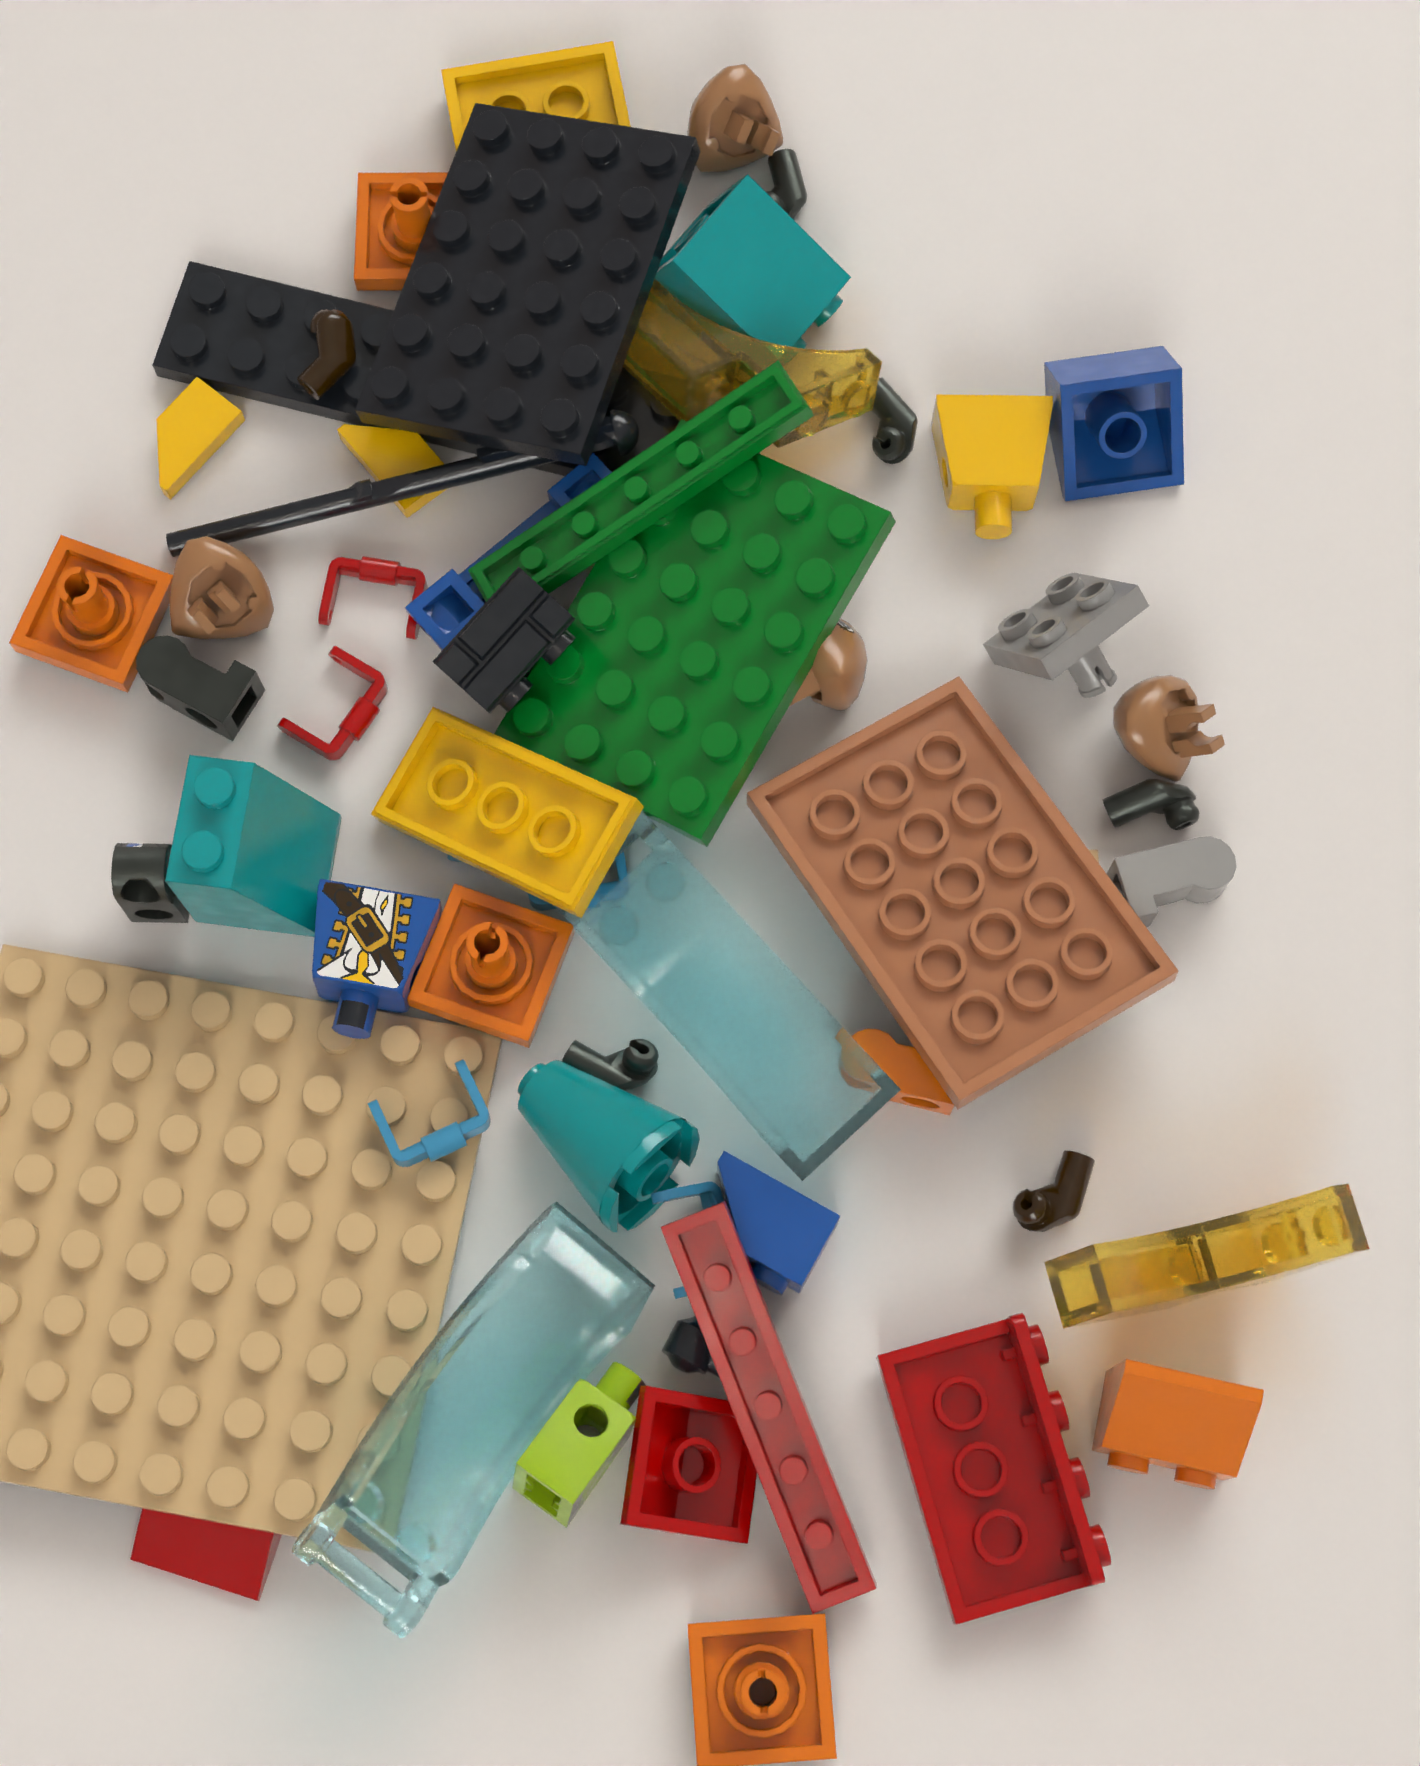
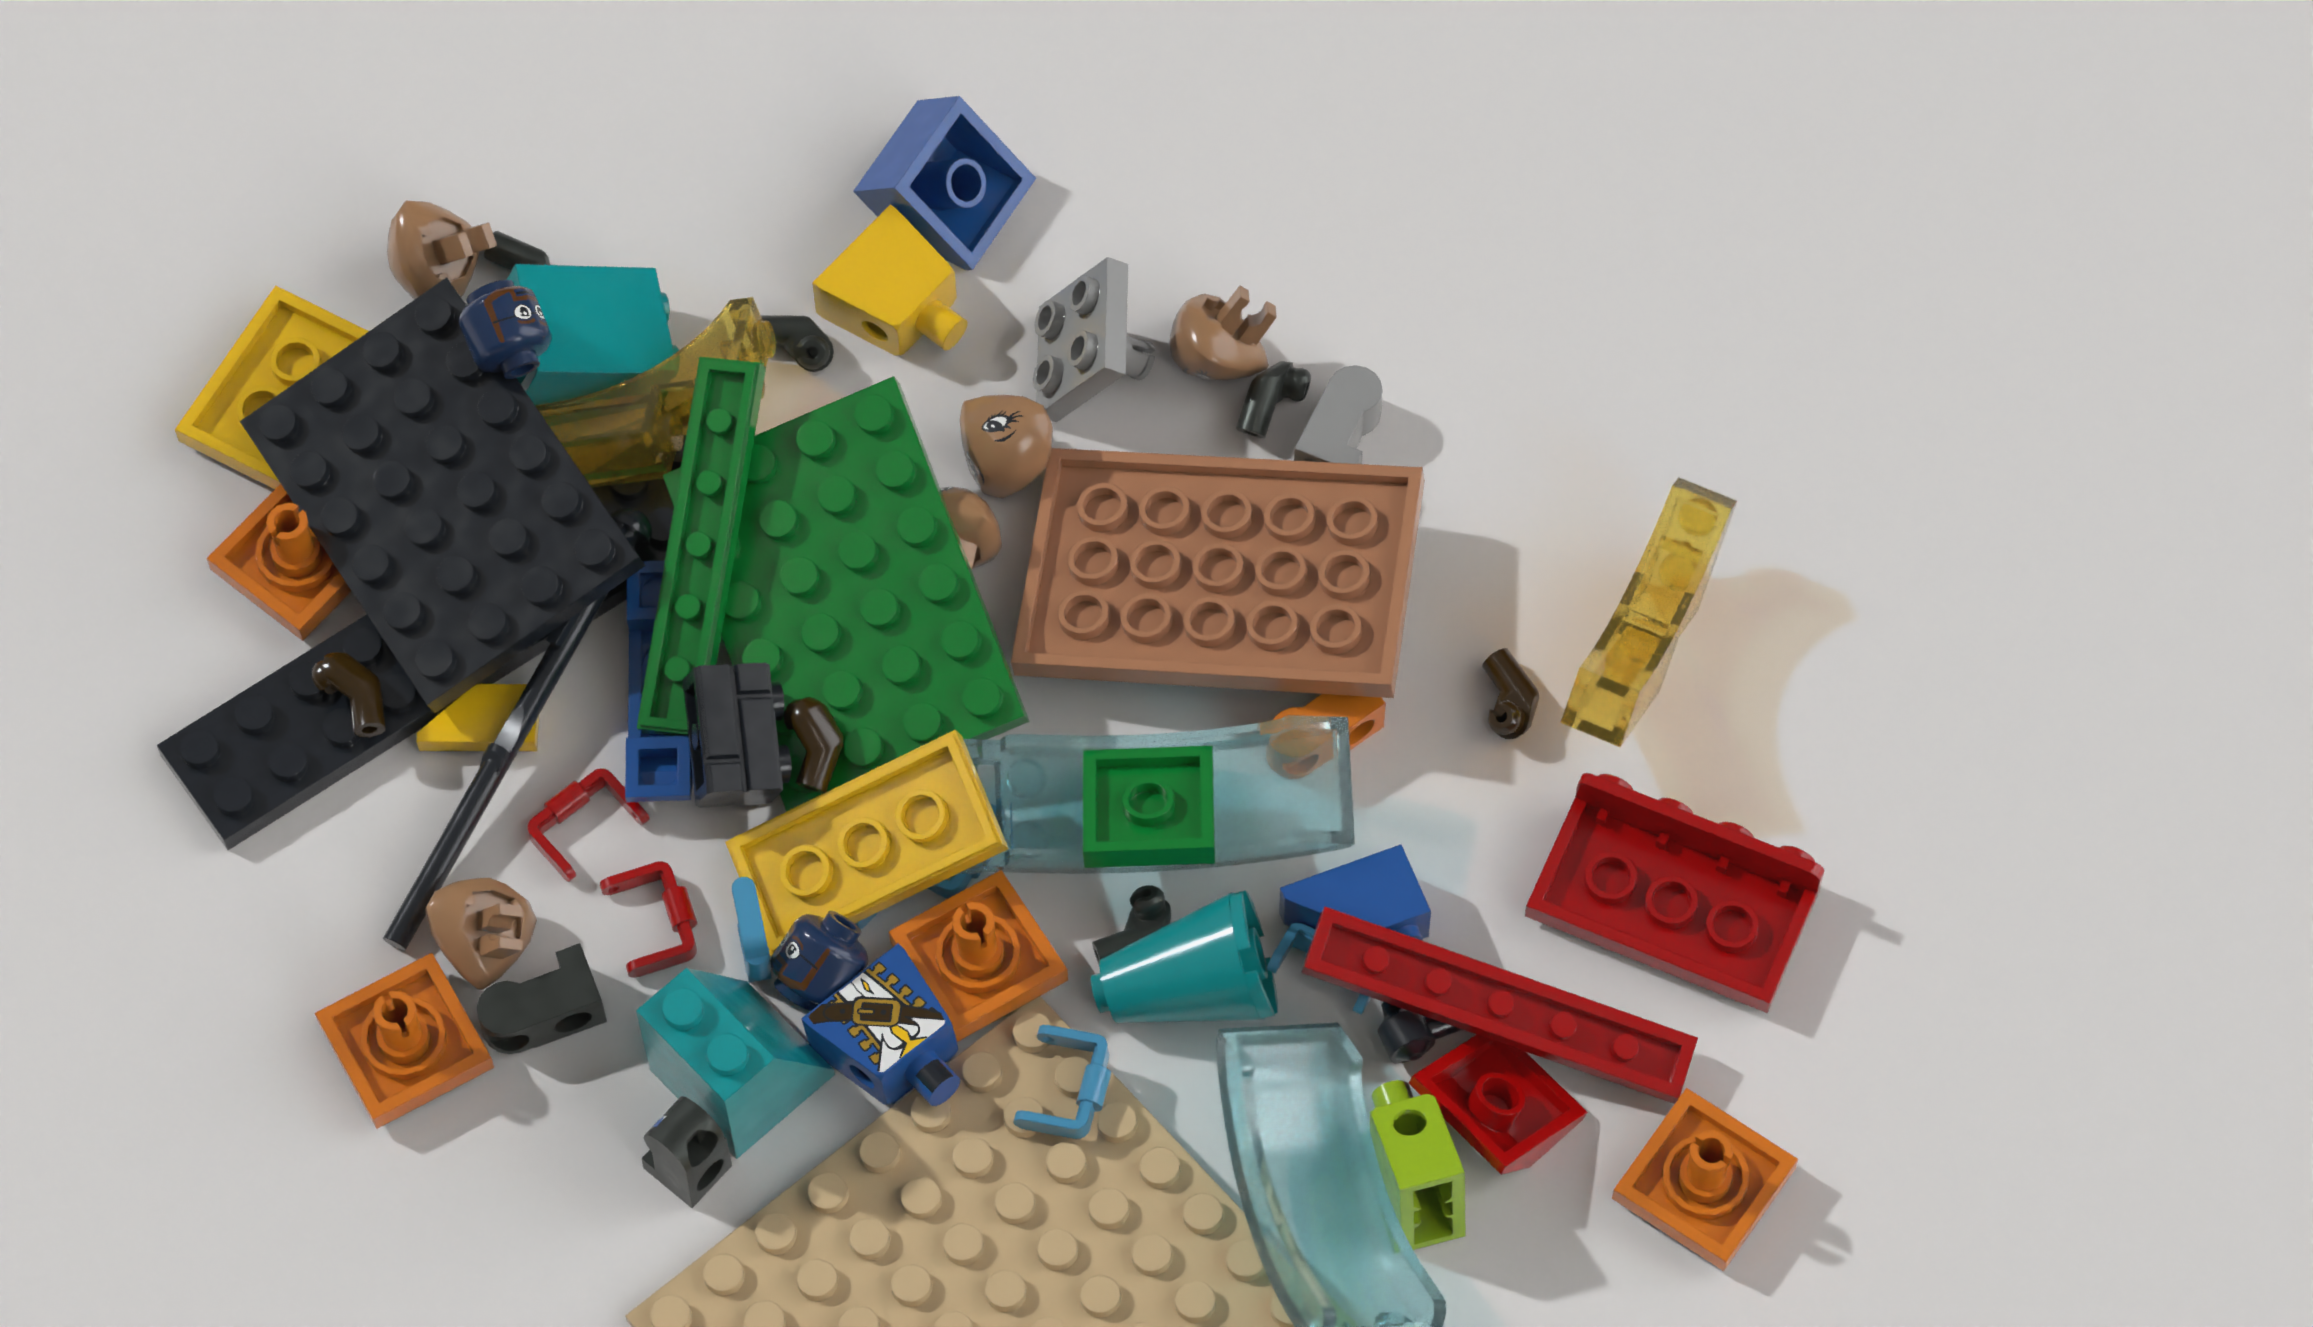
camera: 50 degrees left, 10 degrees down
(192, 432) = (310, 855): yellow tile -> none
(357, 810) = (751, 930): none -> dark azure piece
(384, 851) = (817, 958): none -> dark blue head
(556, 707) = (819, 737): none -> dark brown arm
(678, 207) = (505, 329): none -> dark blue head
(704, 995) = (1148, 807): none -> green plate
(932, 639) = (1005, 442): none -> medium nougat piece
(1175, 1422) = (1747, 736): orange slope -> none

